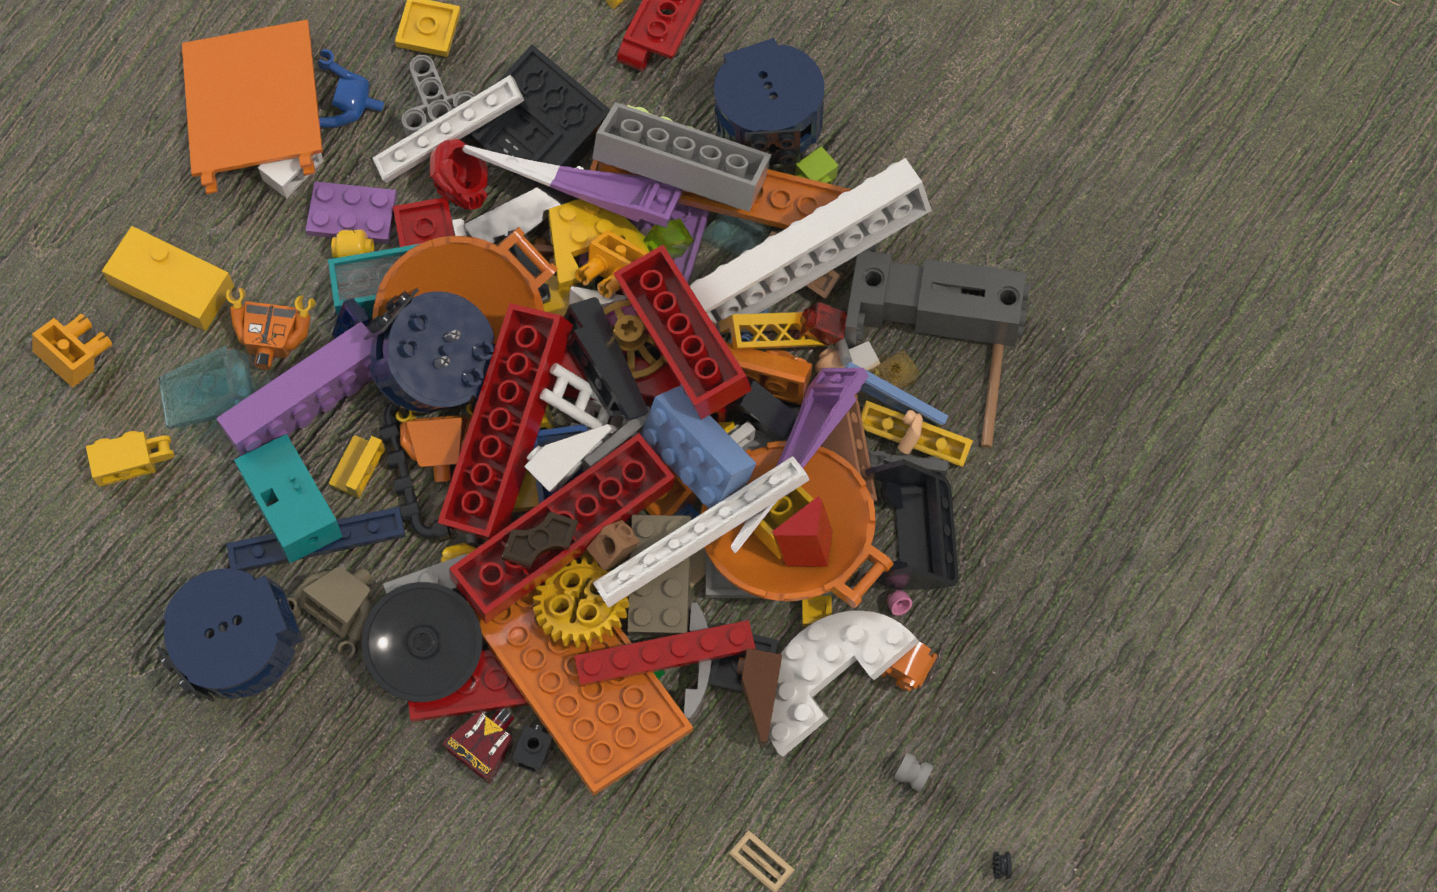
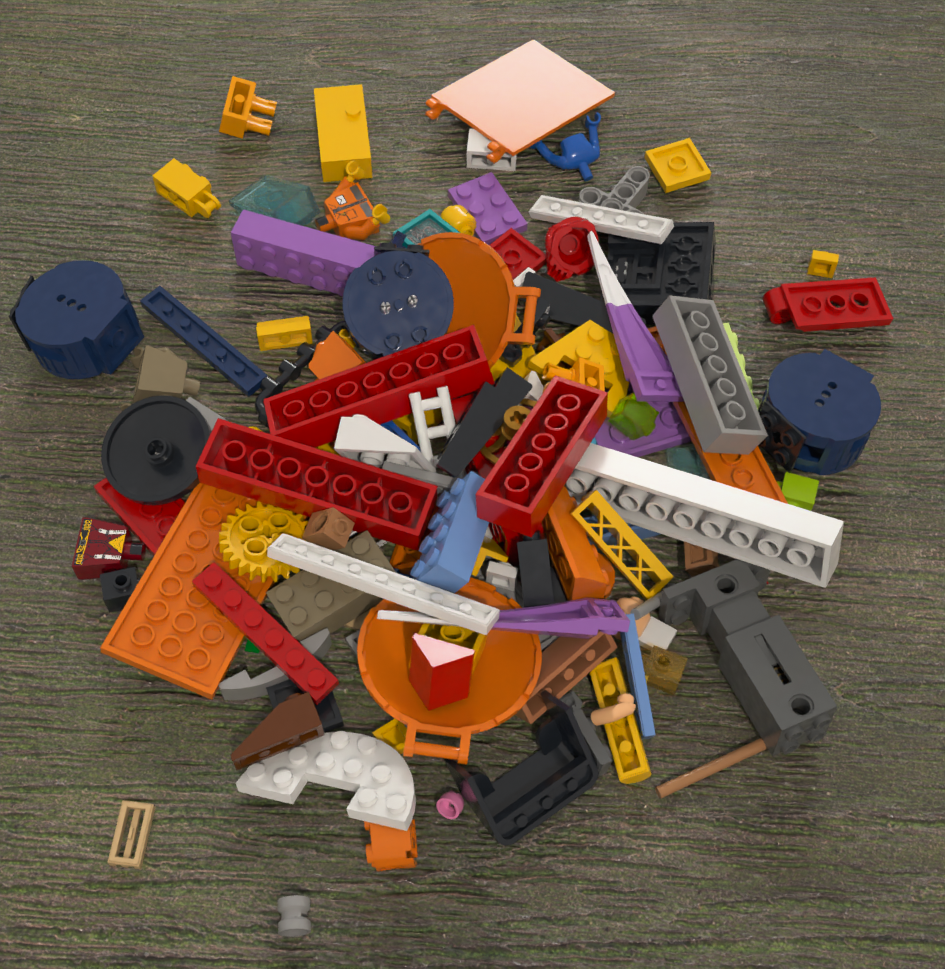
camera: 60 degrees right, 10 degrees down
(288, 498) = (218, 298): teal brick -> none
(527, 545) = (296, 471): dark brown tile -> none
(823, 323) = (653, 573): clear red brick -> none

